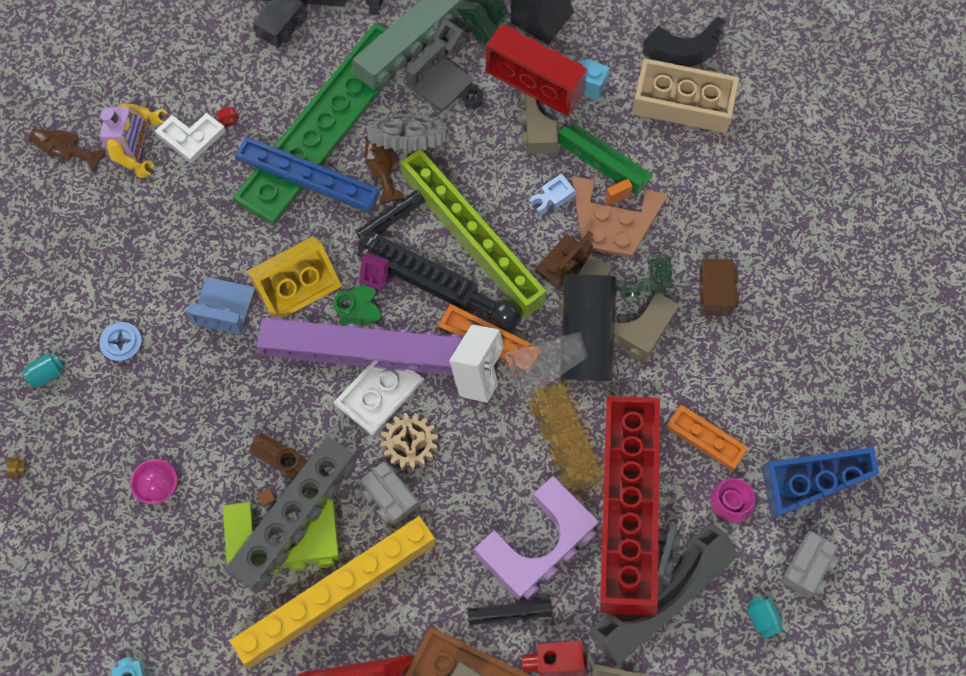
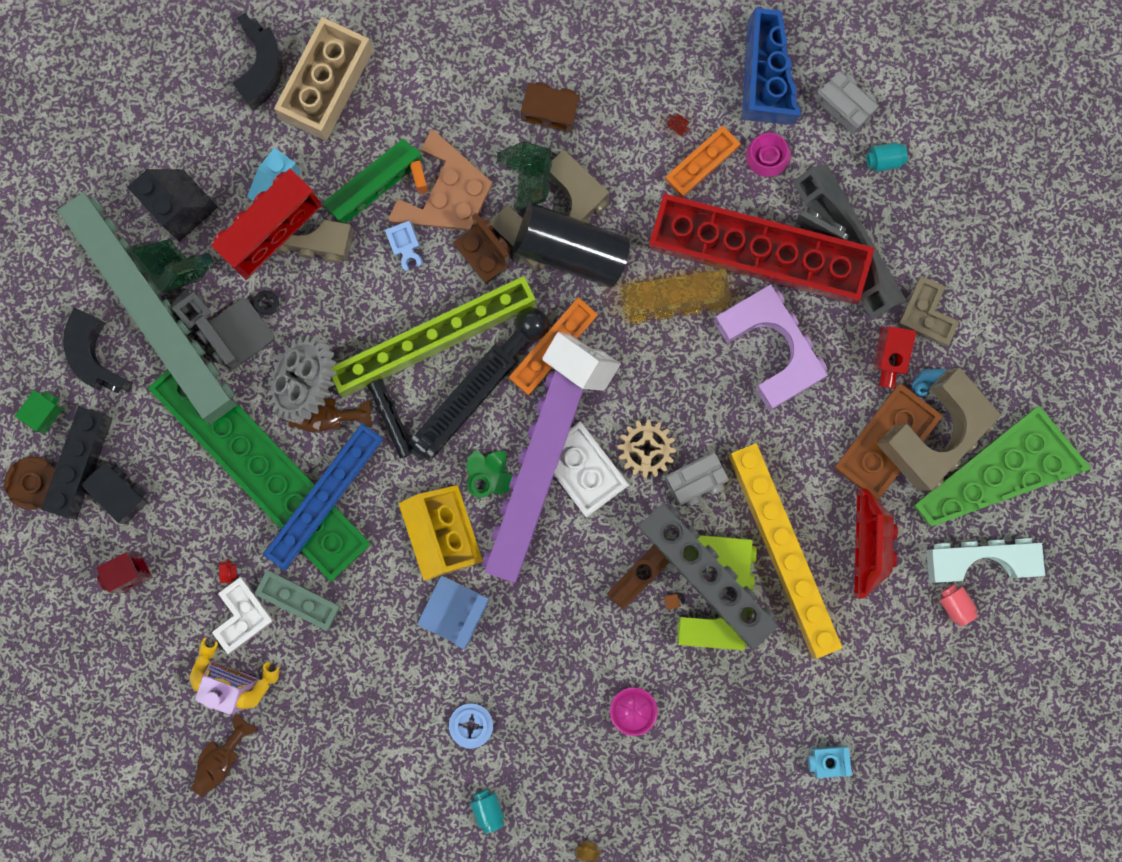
camera: 75 degrees left, 15 degrees up
(210, 36) = (123, 573): none -> dark red brick
(211, 176) = (297, 600): none -> sand green plate
(374, 272) = (457, 446): magenta bracket -> none
(509, 612) = (835, 383): black pin -> none
(543, 362) = (598, 297): clear wing -> none
(736, 407) = (678, 124): none -> clear red plate

